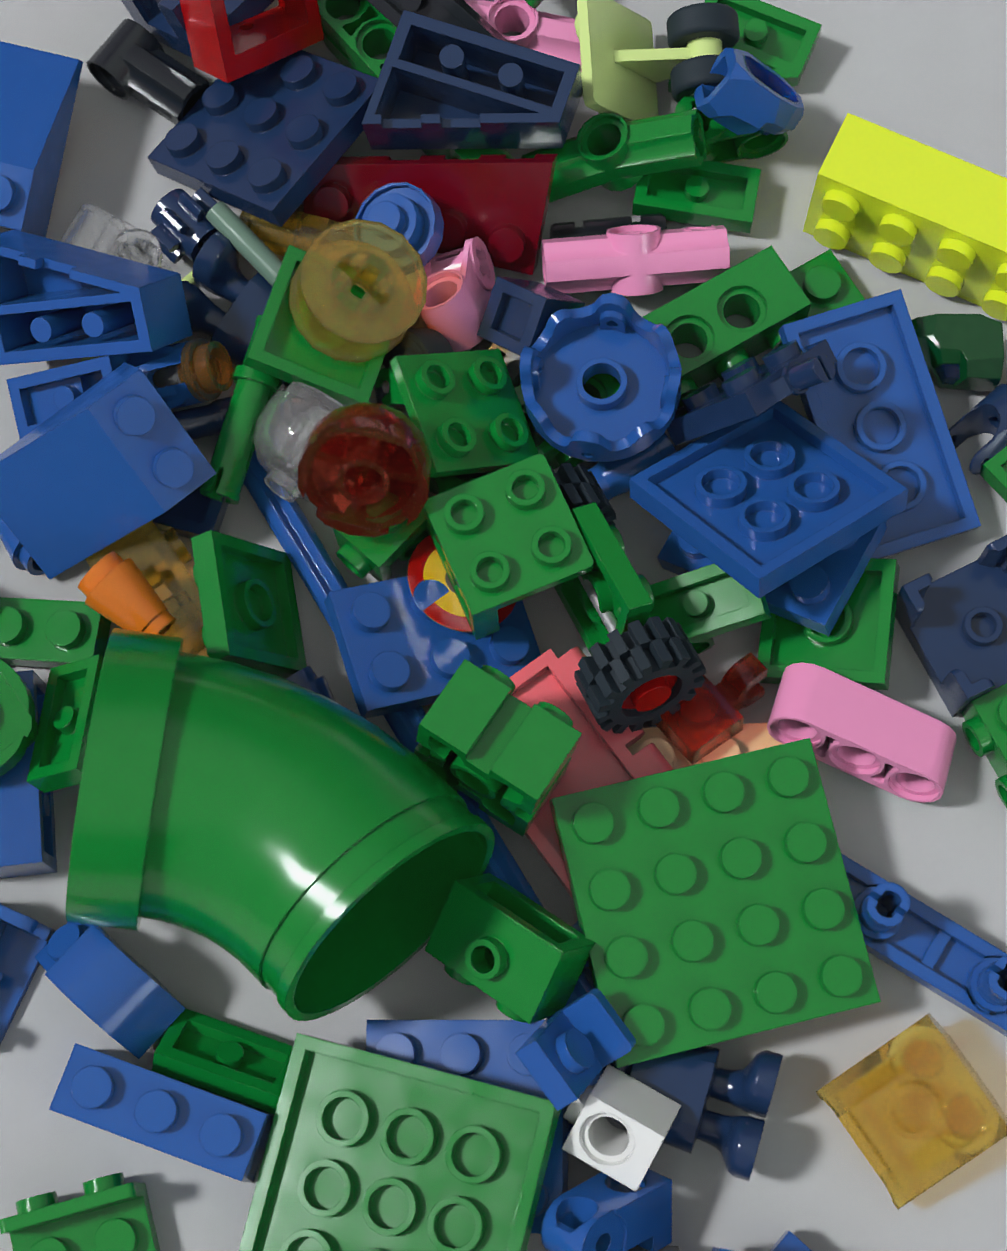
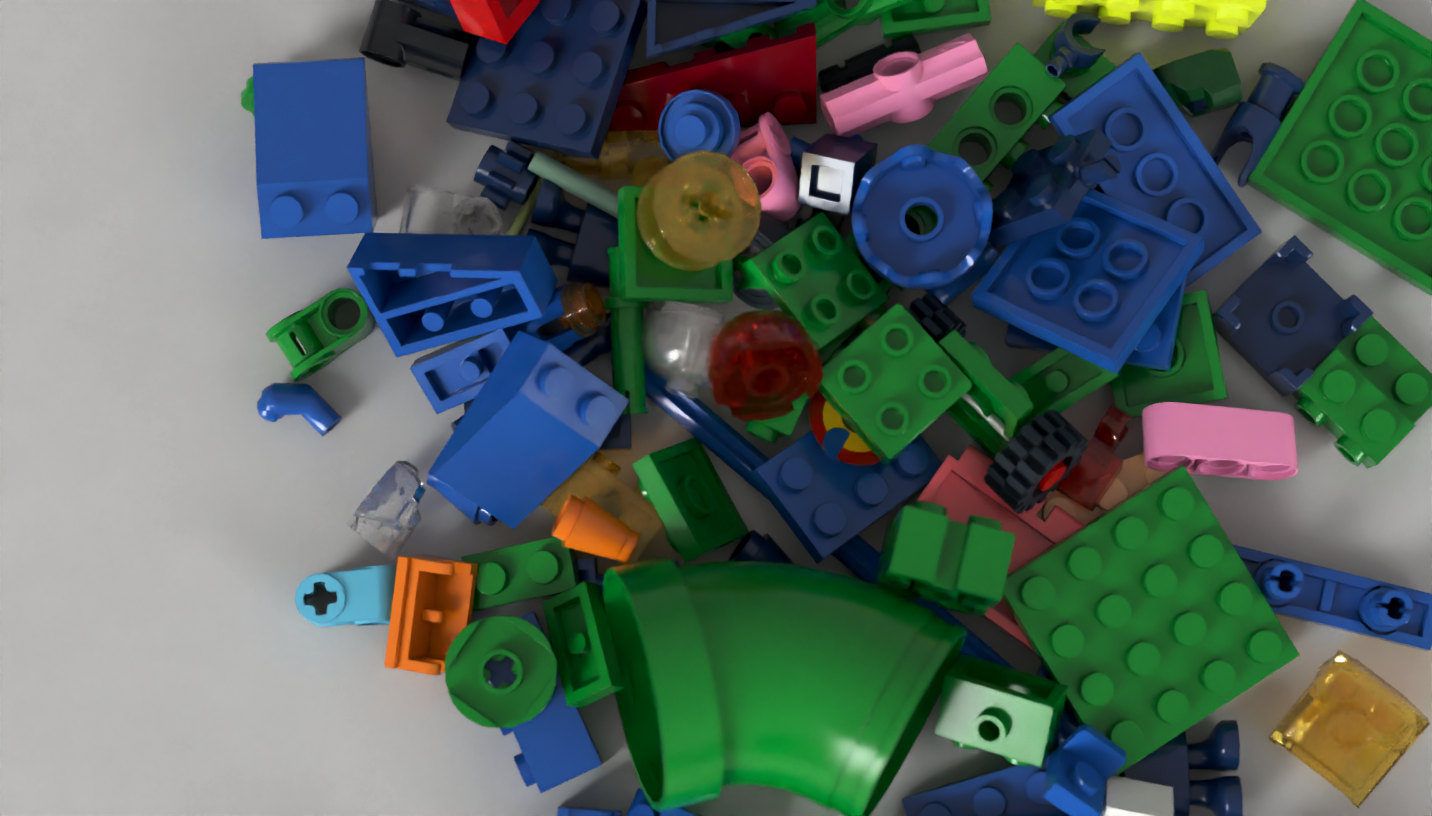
camera: 30 degrees left, 10 degrees up
(827, 274) = (1068, 51): none -> dark blue piece

